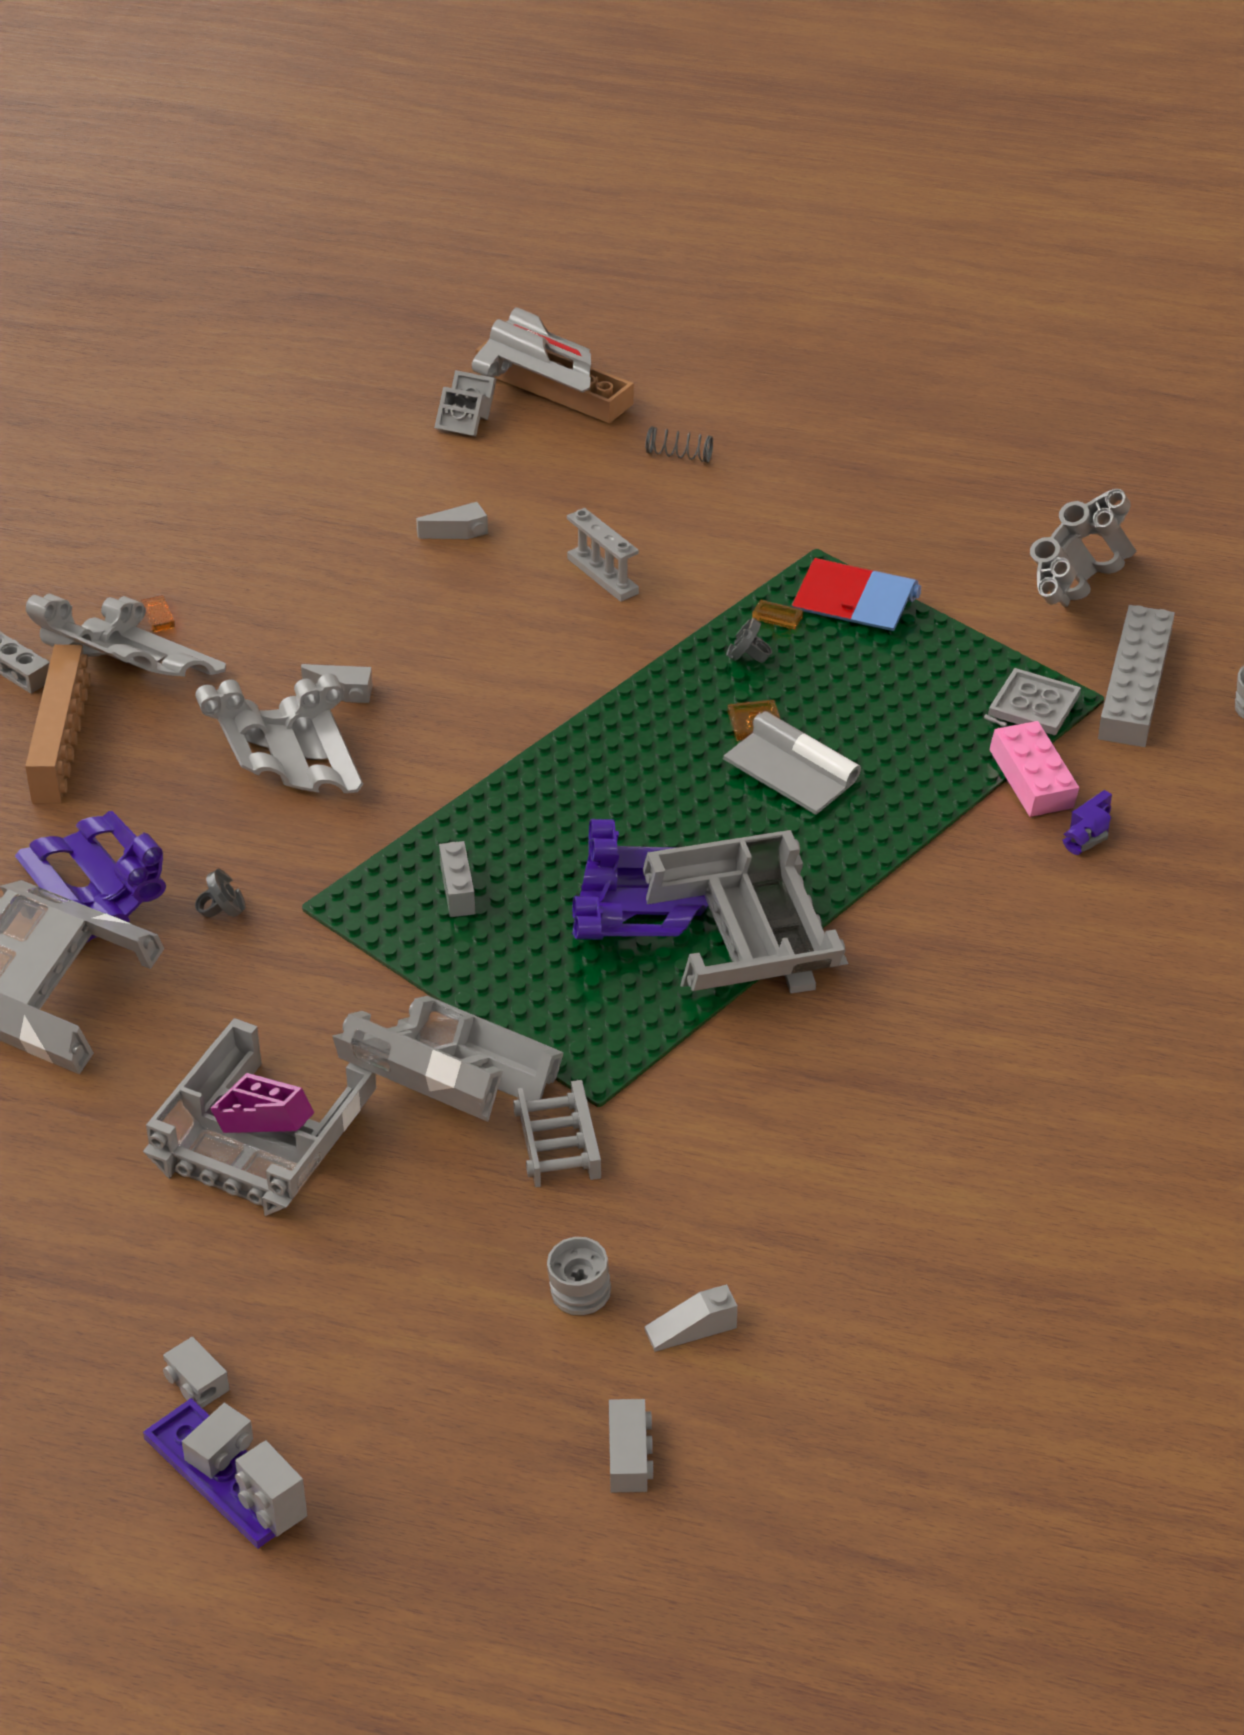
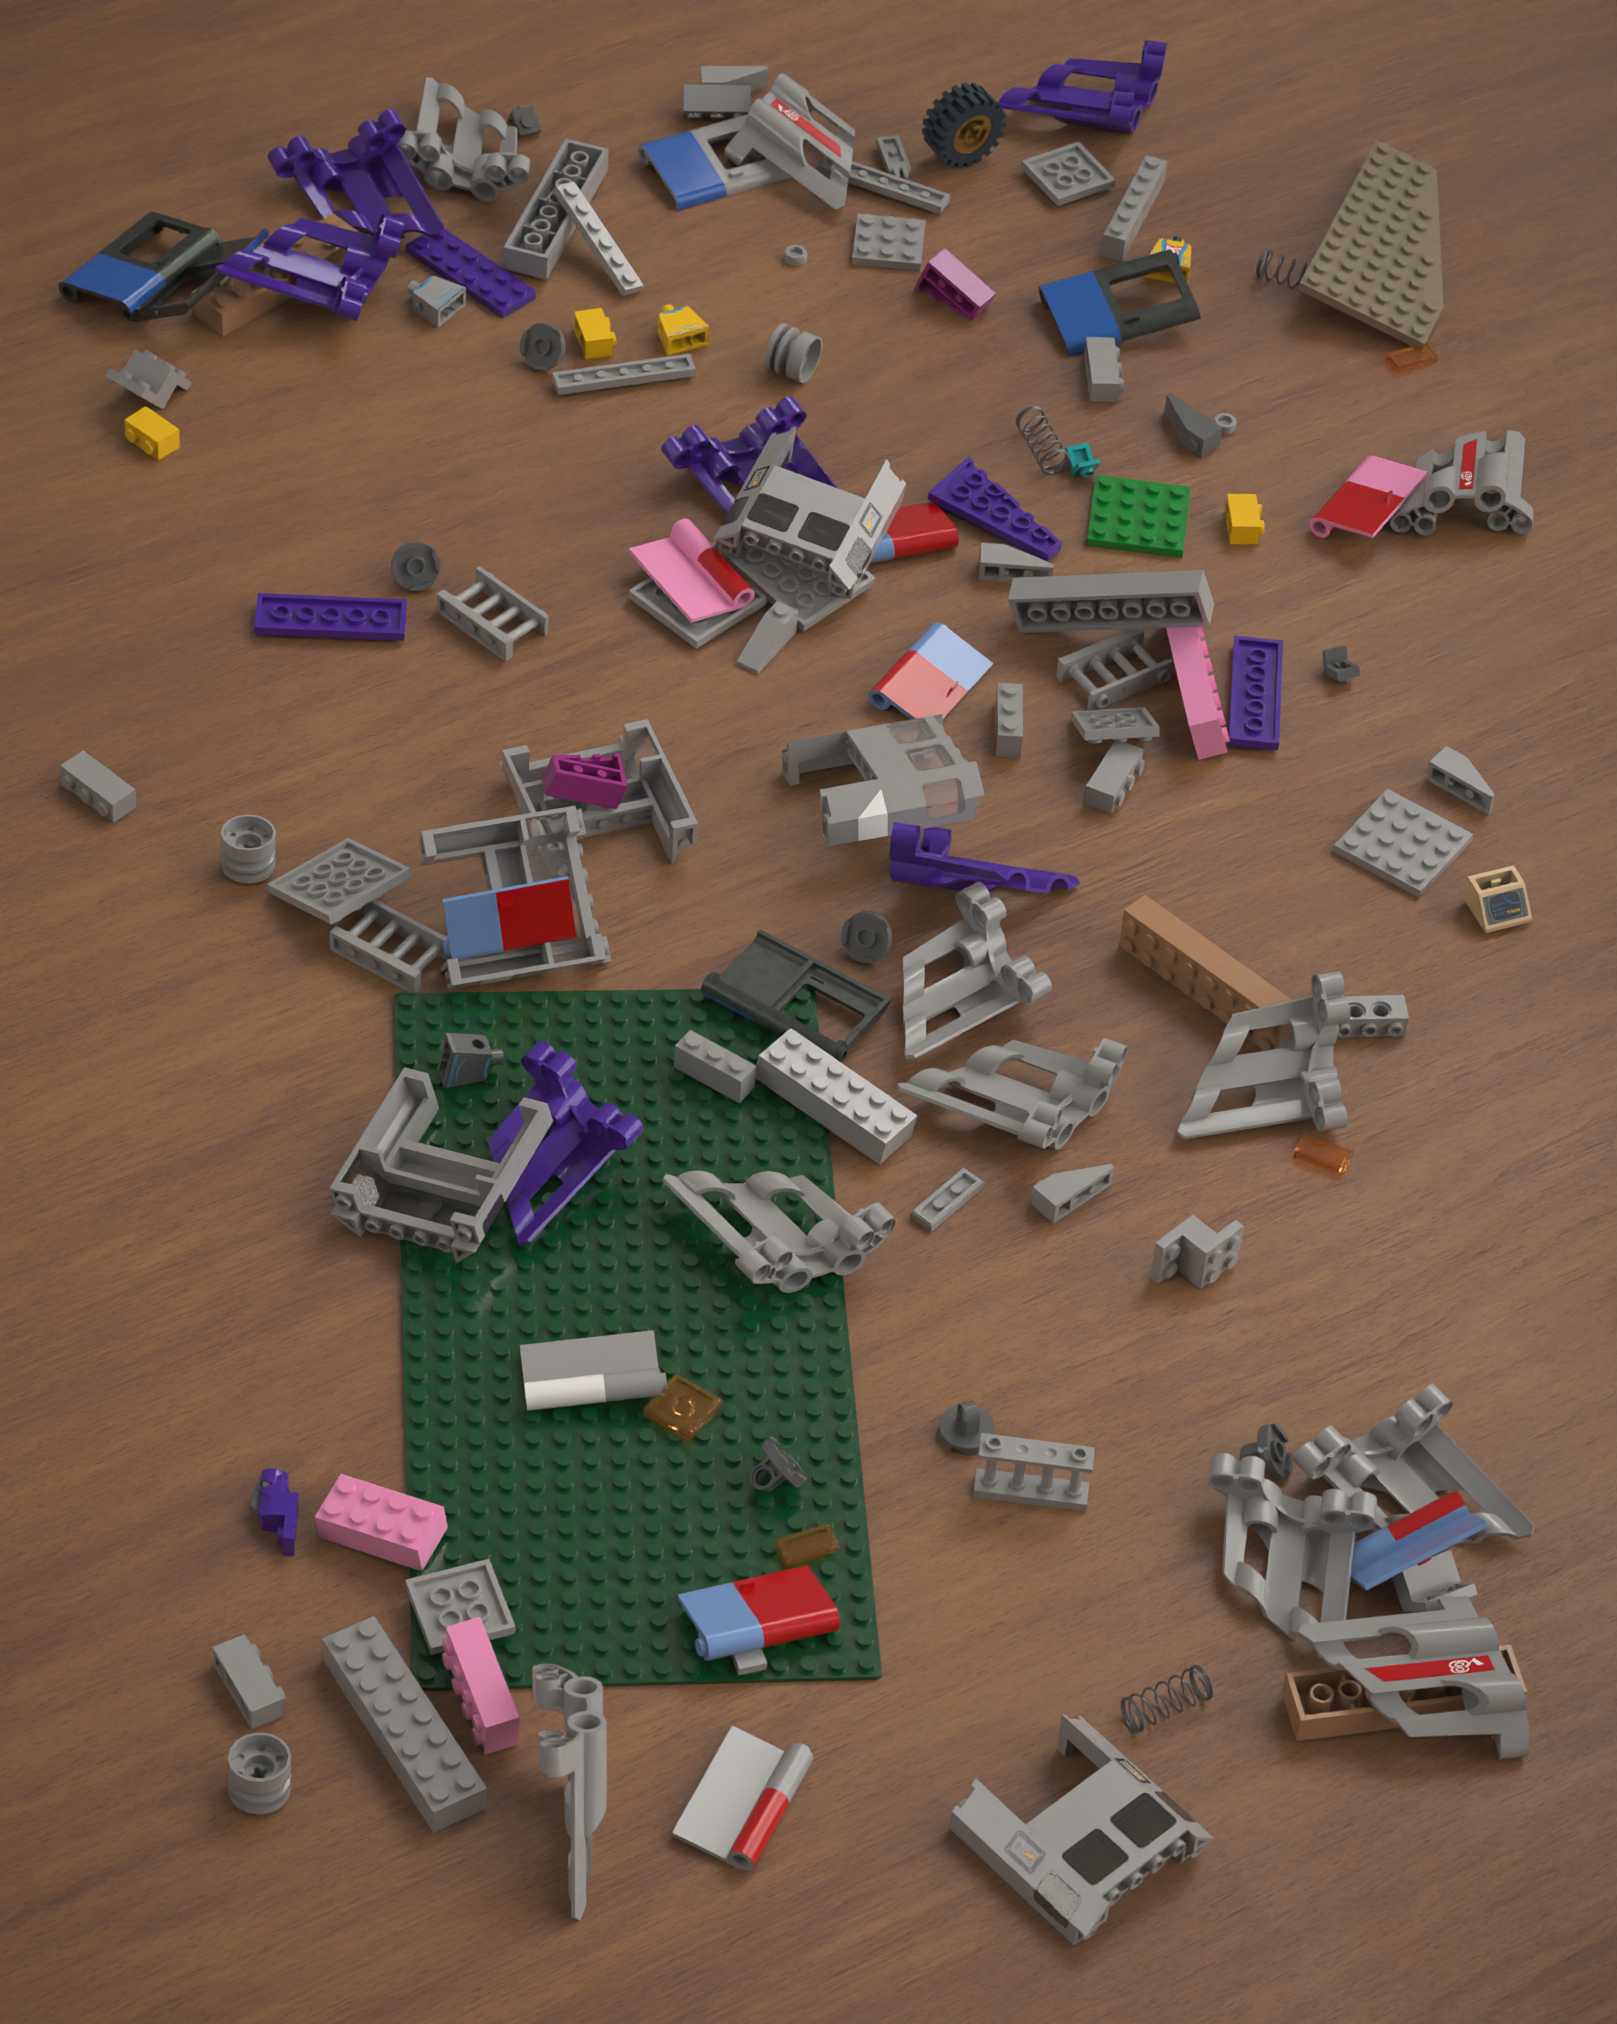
camera: 130 degrees right, 5 degrees up
(92, 1454) = (415, 565): none -> dark grey tile
(115, 1376) = (487, 631): none -> light grey fence
(195, 1372) = (423, 650): light grey brick -> none
(211, 813) = (978, 991): none -> light grey panel
(217, 1440) = (346, 611): light grey brick -> none
(270, 1488) = (271, 596): light grey brick -> none
(335, 602) = (1196, 1252): none -> light grey bracket
(336, 921) = (773, 973): none -> pearl dark grey piece
(400, 456) = (1410, 1462): none -> light grey panel
(405, 812) = (835, 1096): none -> light grey brick
(417, 732) = (947, 1199): none -> light grey tile
(451, 493) = (1271, 1450): none -> dark grey tile
(455, 523) = (1226, 1432): light grey slope -> none
(457, 402) = (1413, 1540): none -> medium blue door
(482, 1029) = (508, 918): none -> door
(493, 451) = (1304, 1541): none -> light grey panel
(538, 1194) = (339, 881): none -> light grey plate
(571, 749) = (776, 1246): none -> light grey panel
(595, 616) = (962, 1427): none -> dark grey tile
(625, 990) = (466, 1059): none -> dark grey torso
(696, 1318) = (143, 890): light grey slope -> none
(808, 401) = (1087, 1843): none -> light grey piece
(969, 539) = (742, 1798): none -> light grey door
(1076, 644) = (481, 1686): none -> bright pink brick
(1211, 750) = (249, 1681): none -> light grey brick

